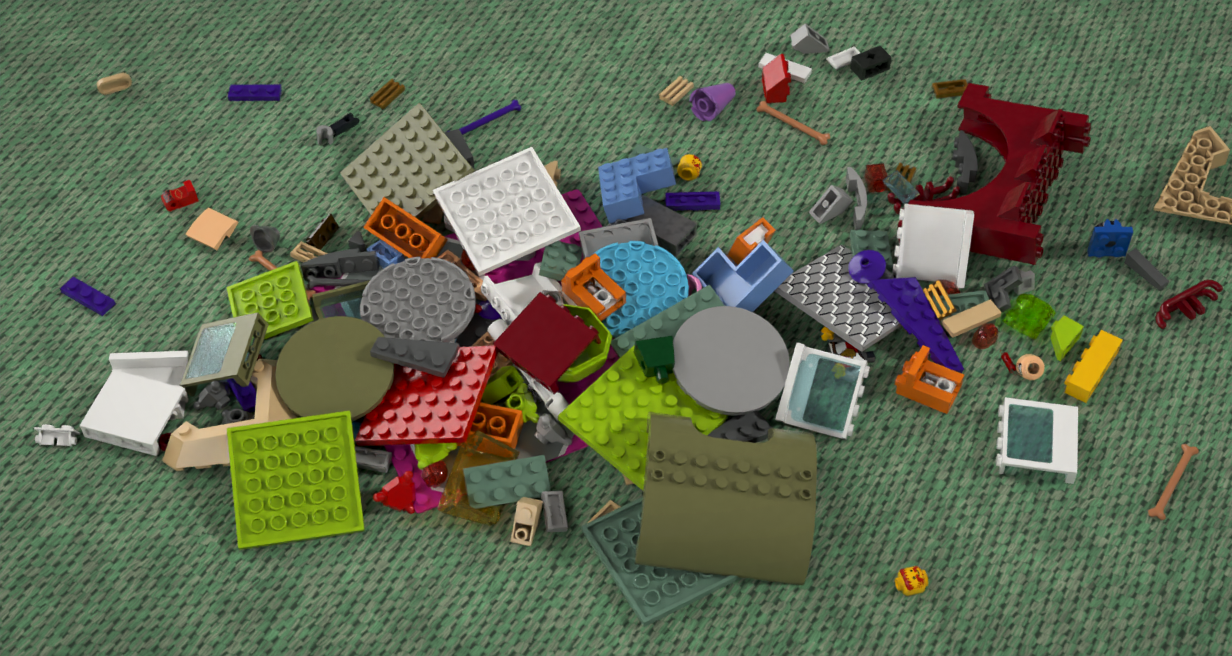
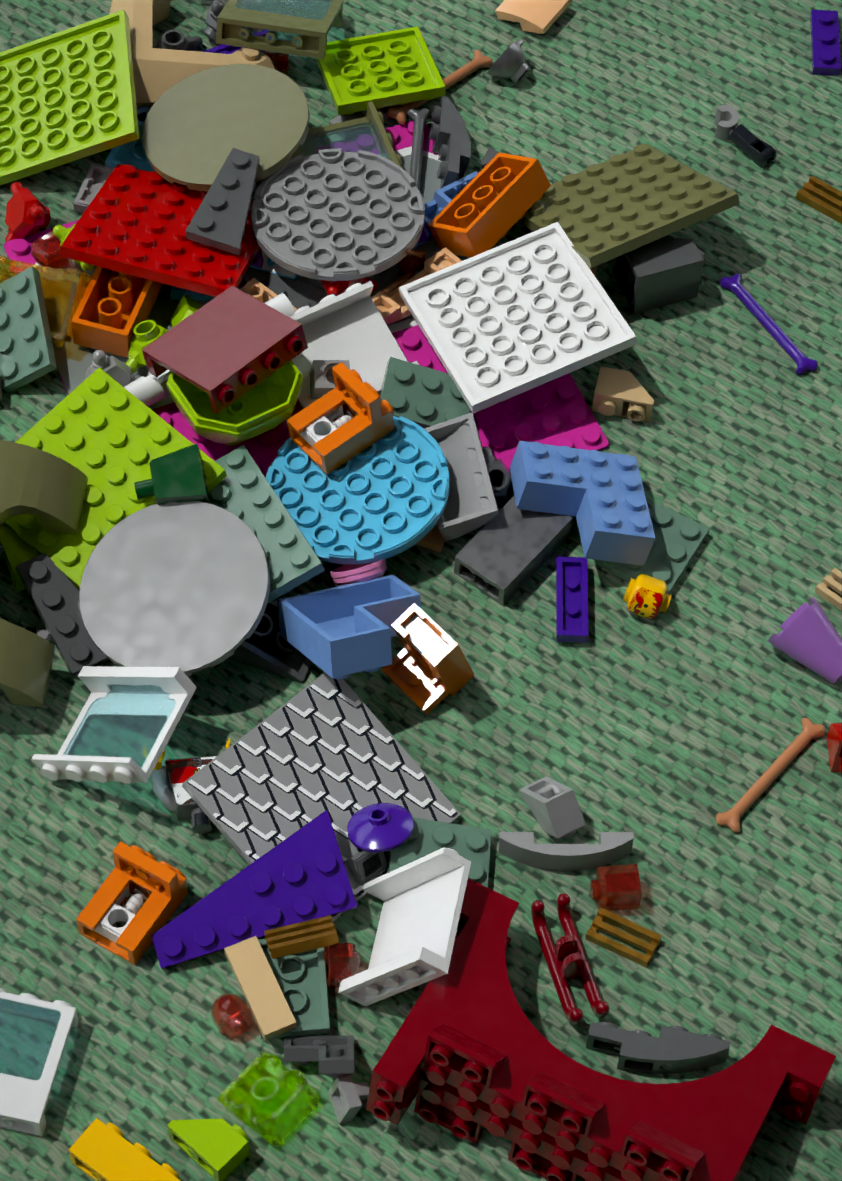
camera: 90 degrees right, 5 degrees up
(304, 256) = (500, 108): tan tile -> none
(323, 232) = (521, 128): dark brown hinge -> none
(901, 187) = (577, 915): clear light blue slope -> none
(1008, 362) = (172, 1046): red piece -> none
(1035, 371) = (143, 1067): light nougat head -> none

